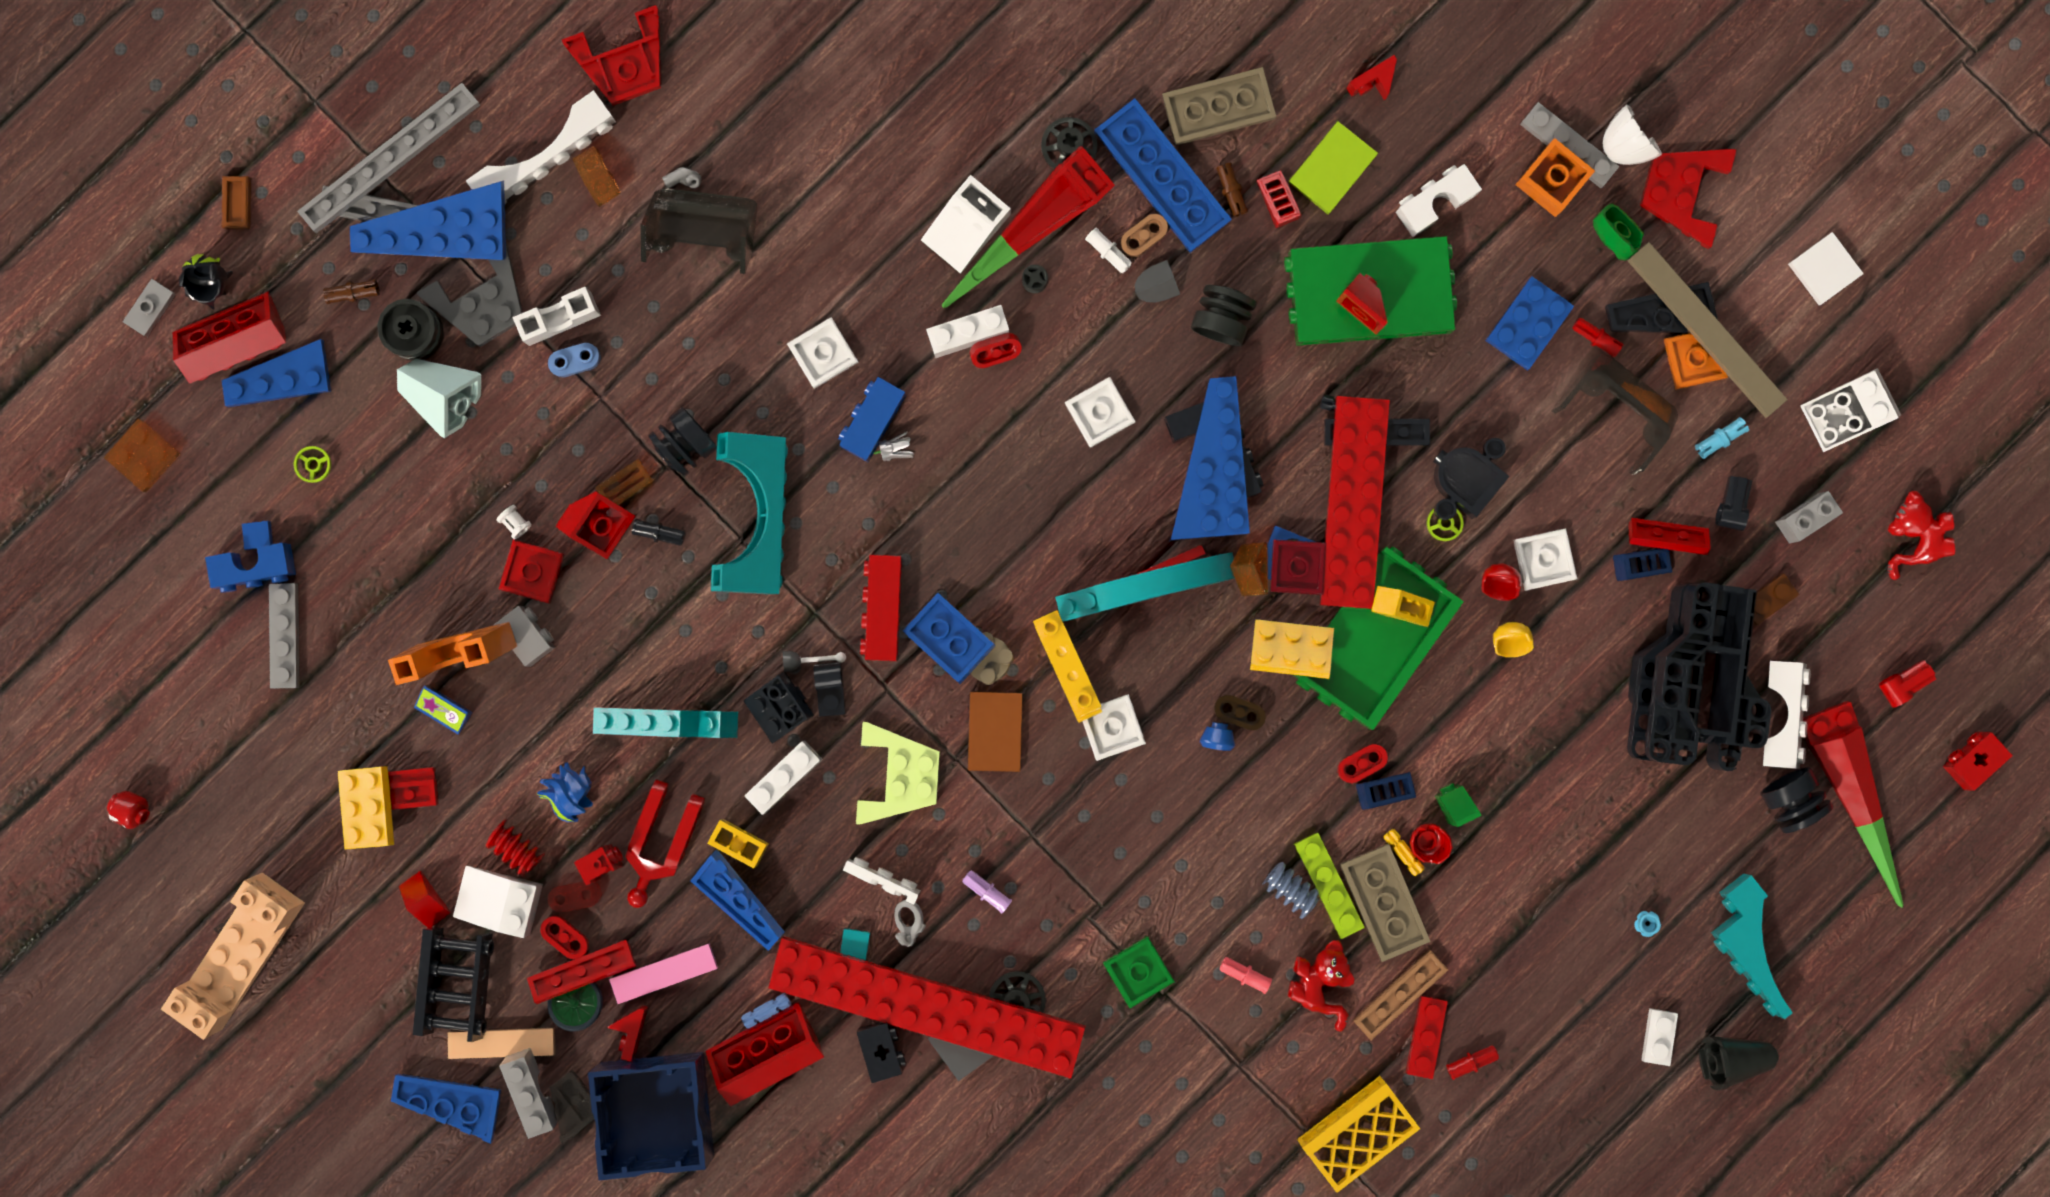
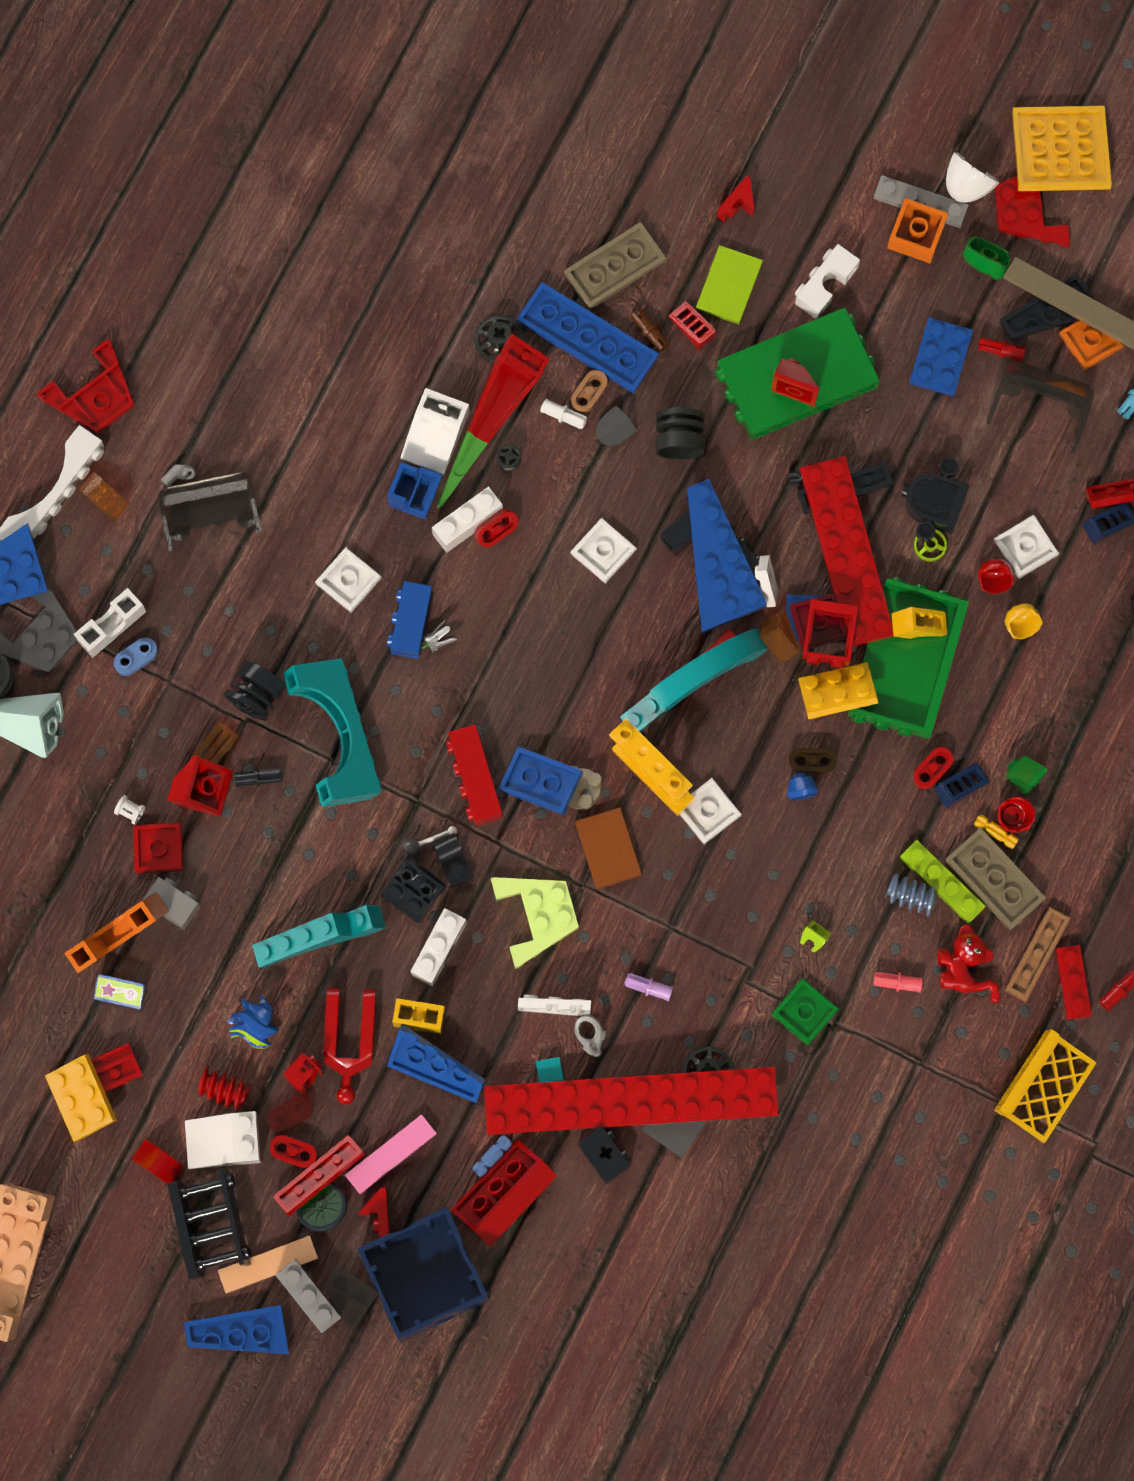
camera: 20 degrees left, 10 degrees down
(922, 281) = (413, 490): none -> blue plate
(1178, 896) = (816, 934): none -> lime tile
(1259, 511) = (768, 586): none -> white plate
(1317, 563) = (835, 610): none -> red window
(1742, 138) = (1061, 148): none -> yellow plate

